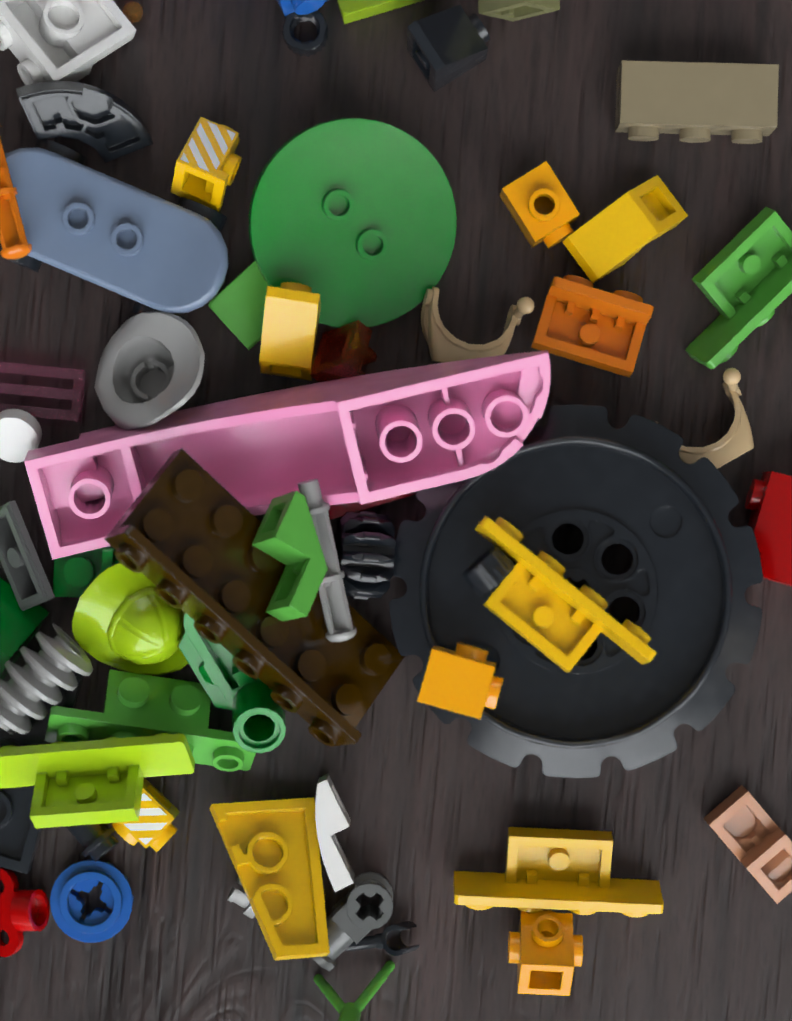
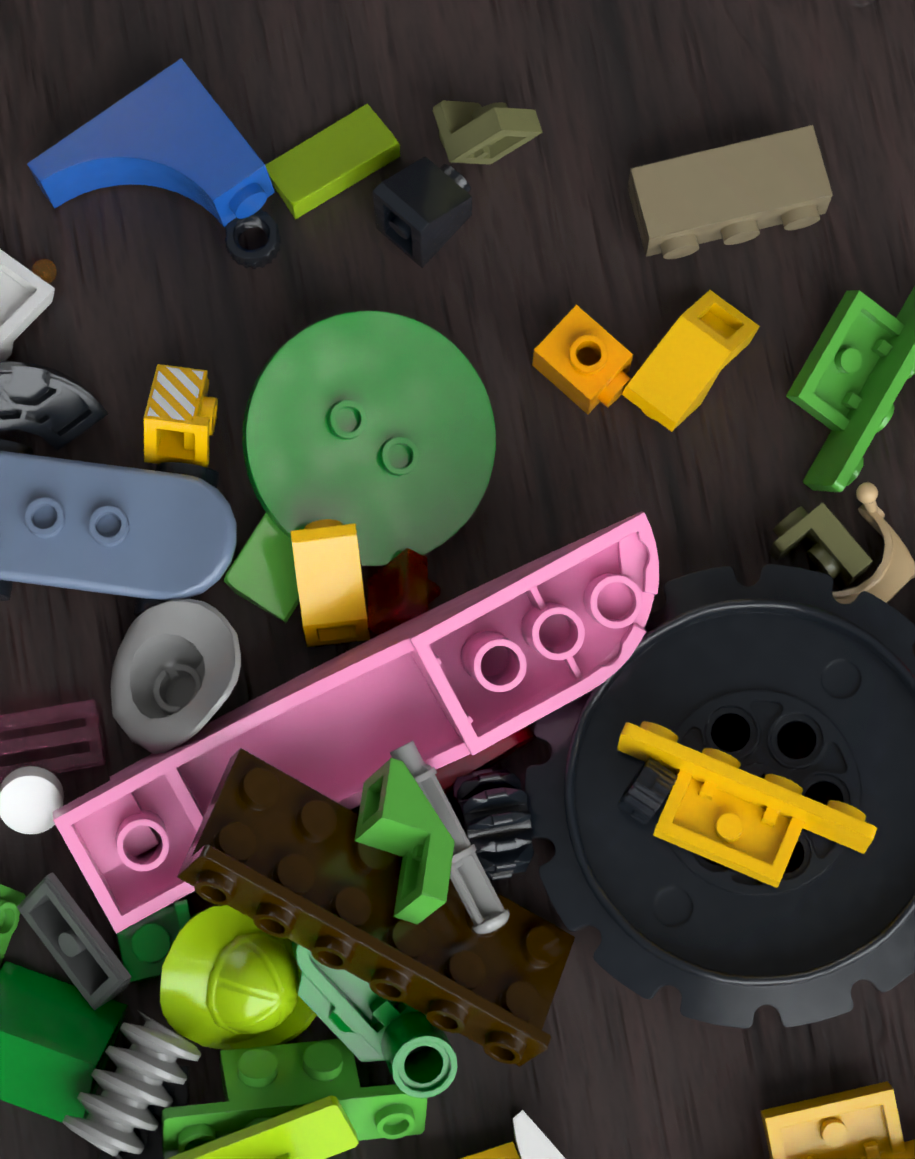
camera: 15 degrees left, 10 degrees down
(447, 348) = (516, 549): tan helmet -> none
(460, 680) = (653, 930): light orange brick -> none
(592, 325) = (686, 479): orange bracket -> none
(692, 411) = (832, 548): none -> olive bracket

